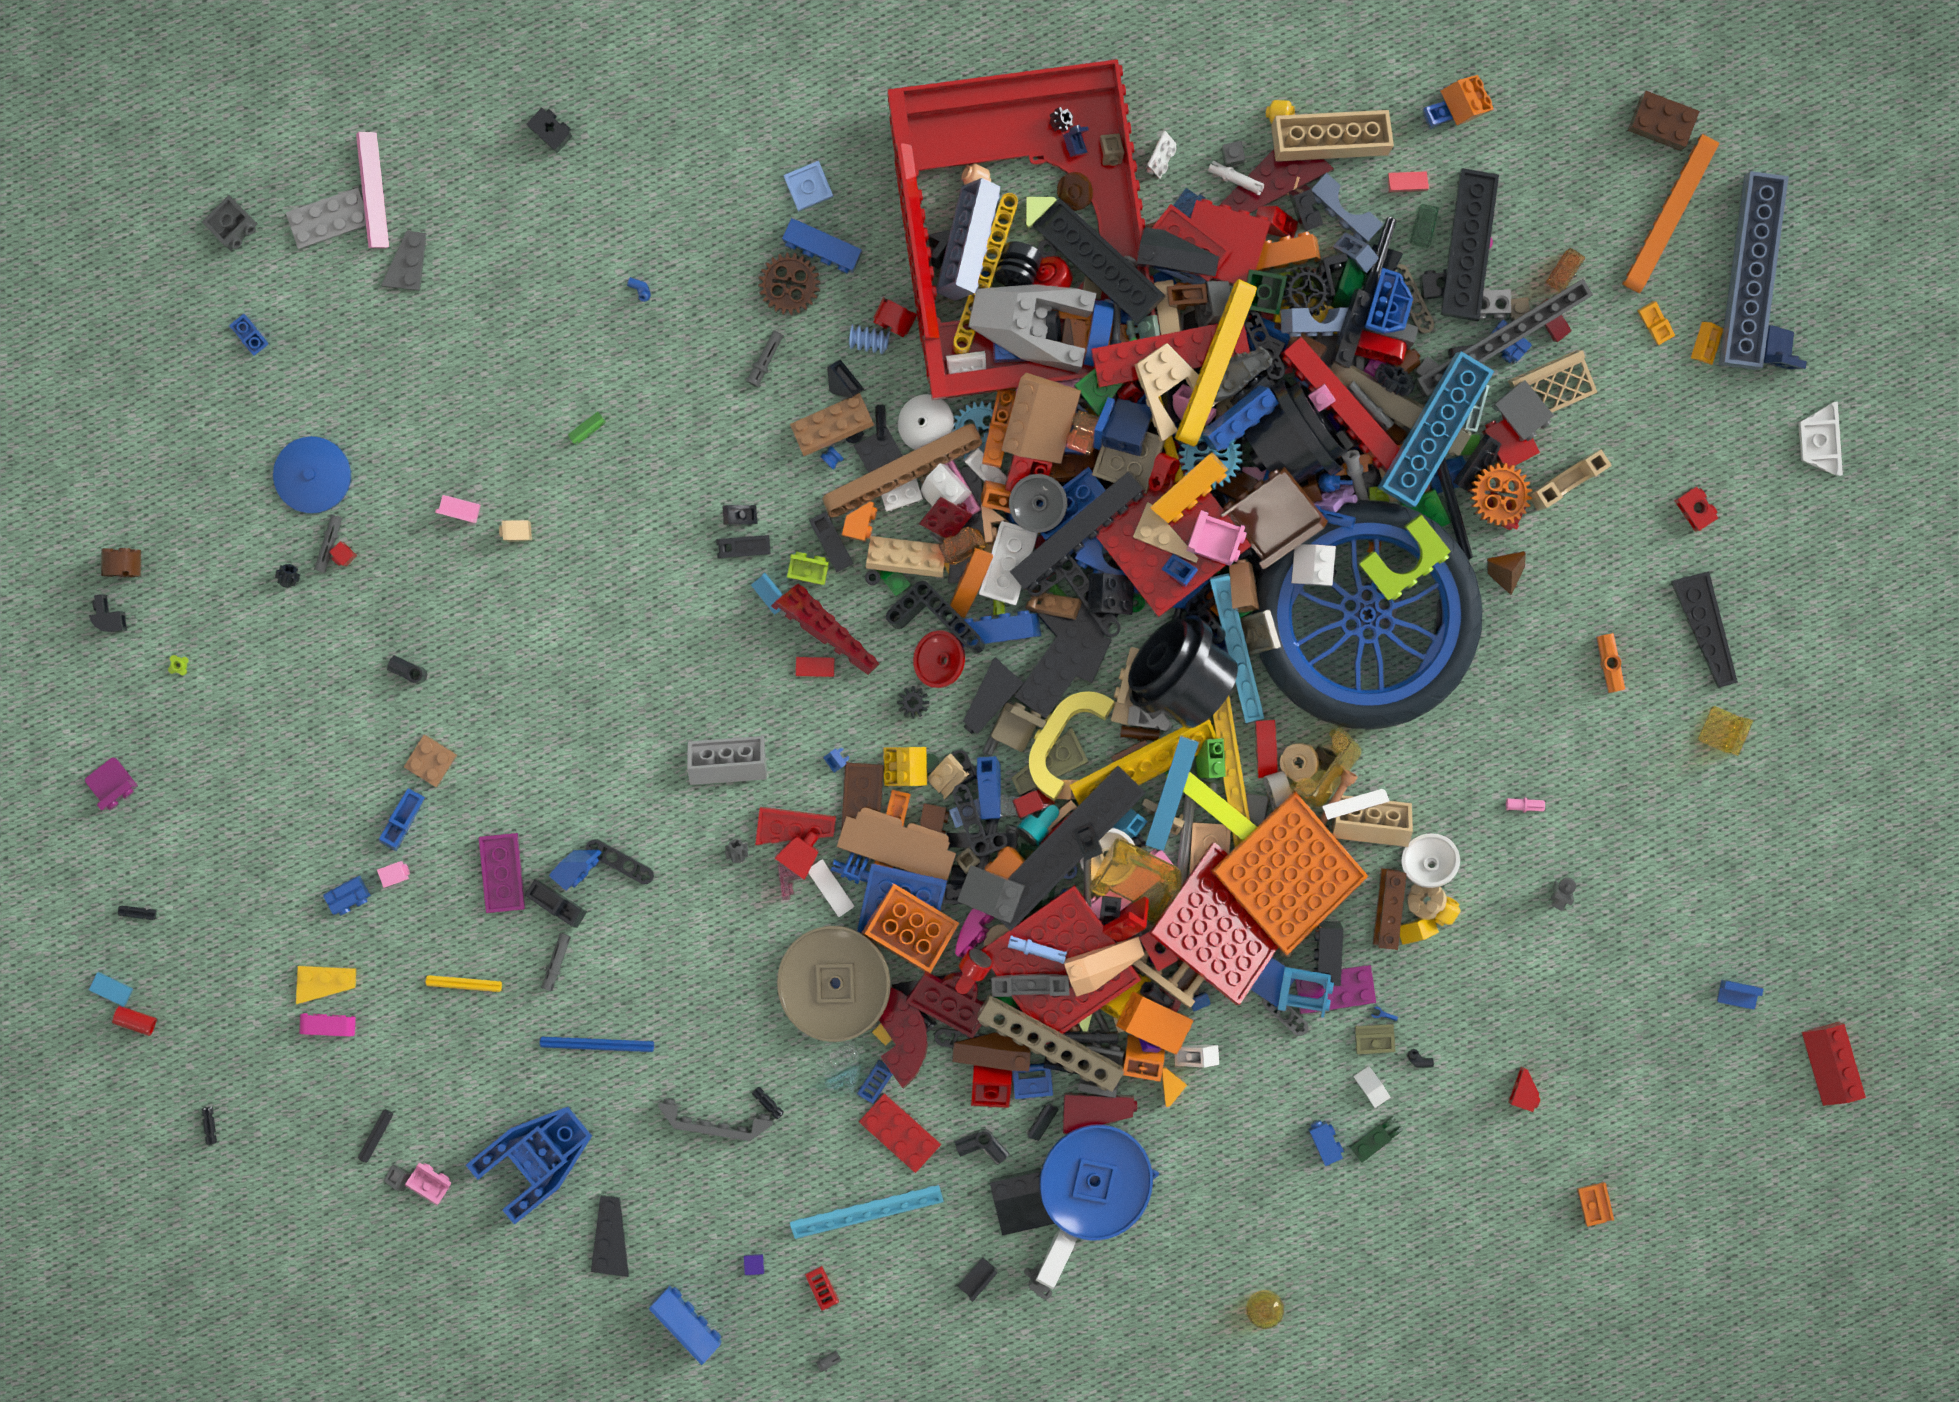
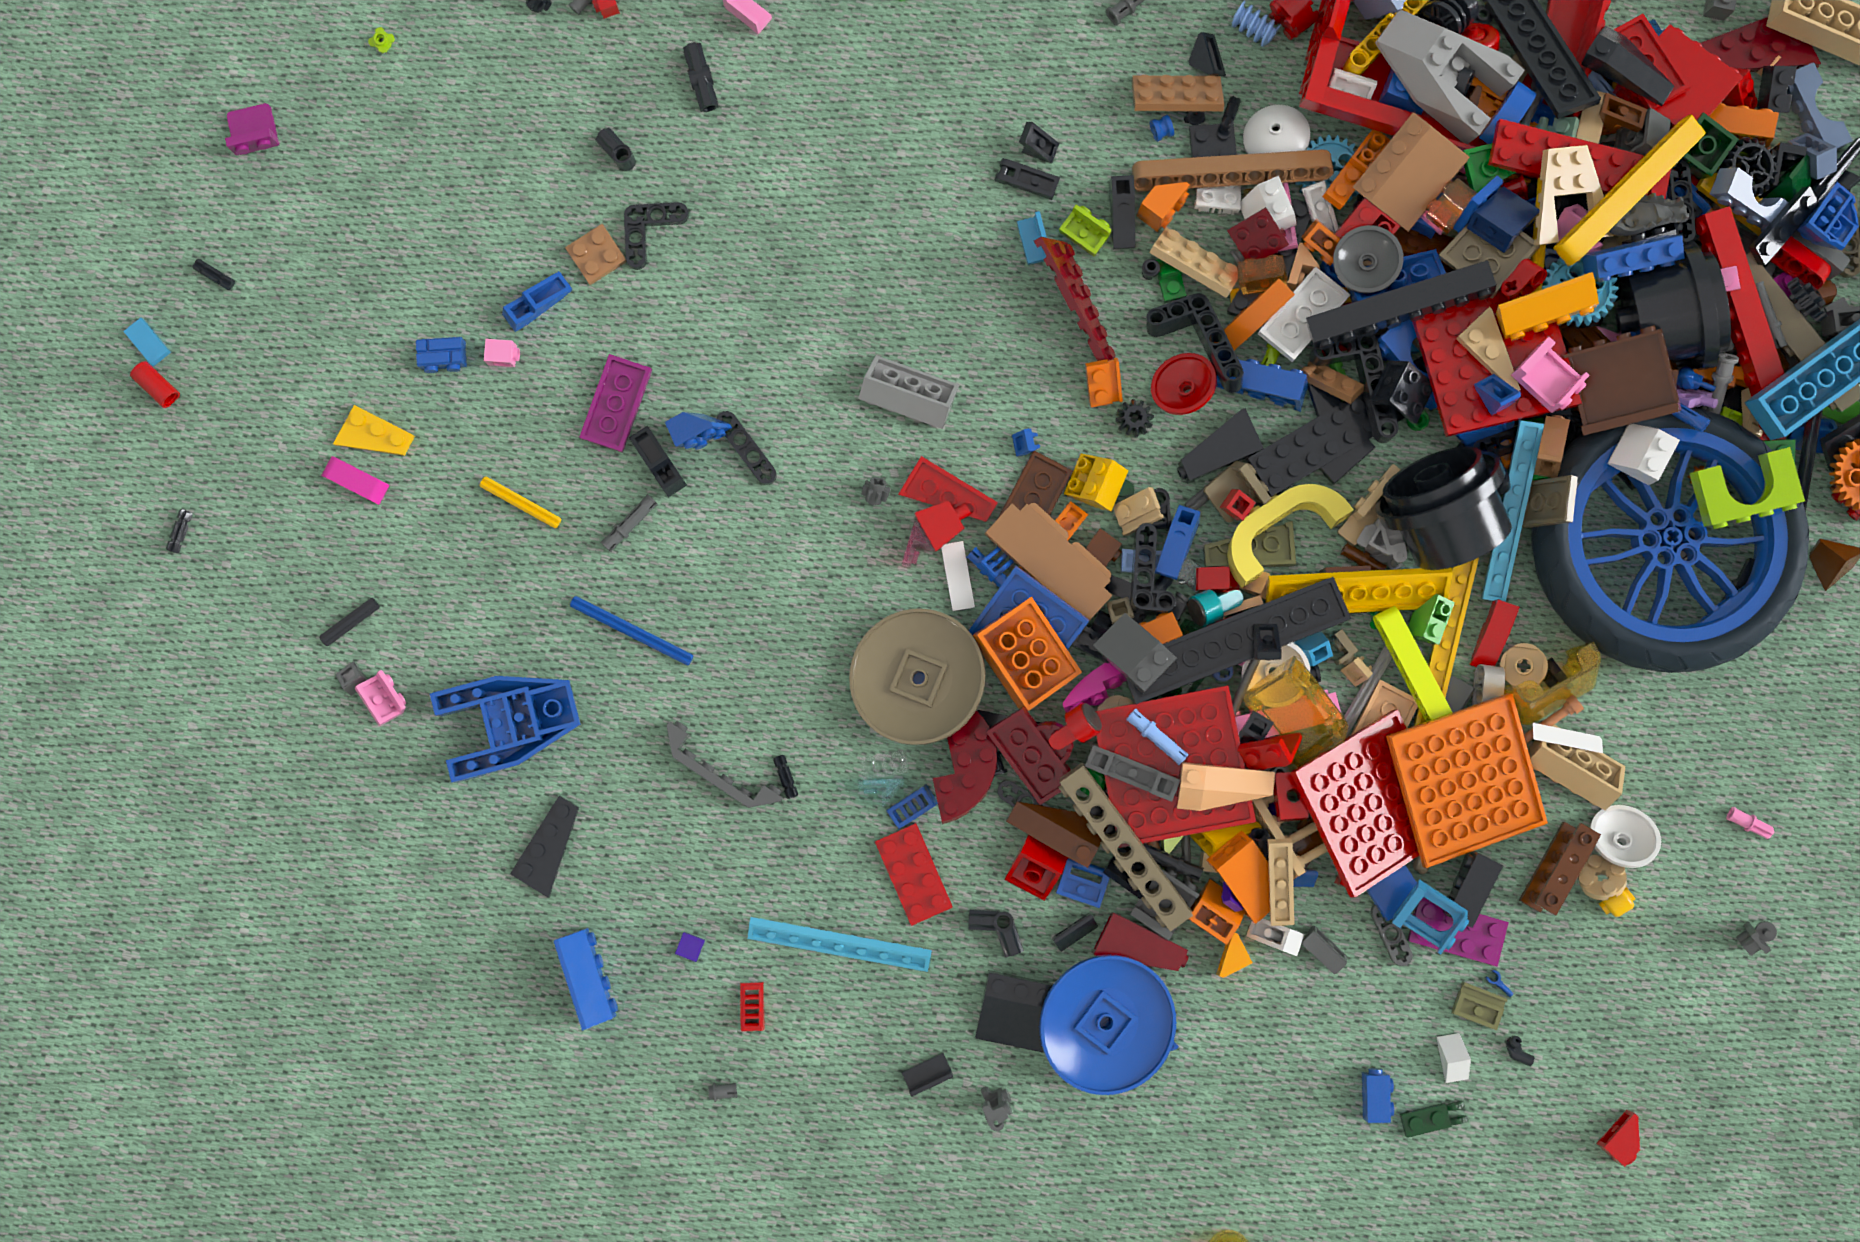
camera: 20 degrees right, 5 degrees down
(446, 581) = (700, 77): none -> black piece
(454, 722) = (640, 227): none -> black beam
(515, 531) = (797, 55): tan slope -> none
(815, 666) = (1046, 336): red tile -> none
(876, 685) = (1103, 382): none -> orange plate
(882, 1034) = (943, 758): yellow tile -> none
(1028, 737) = (1243, 507): none -> red plate
(1056, 1258) = (1027, 1089): white slope -> none
(1172, 793) = (1376, 634): dark azure tile -> none
(1179, 1016) = (1281, 881): none -> tan plate
(1231, 175) = (1707, 22): white pin -> none
(1239, 1049) = (1324, 950): none -> dark grey slope
(1417, 930) = (1579, 908): yellow slope -> none

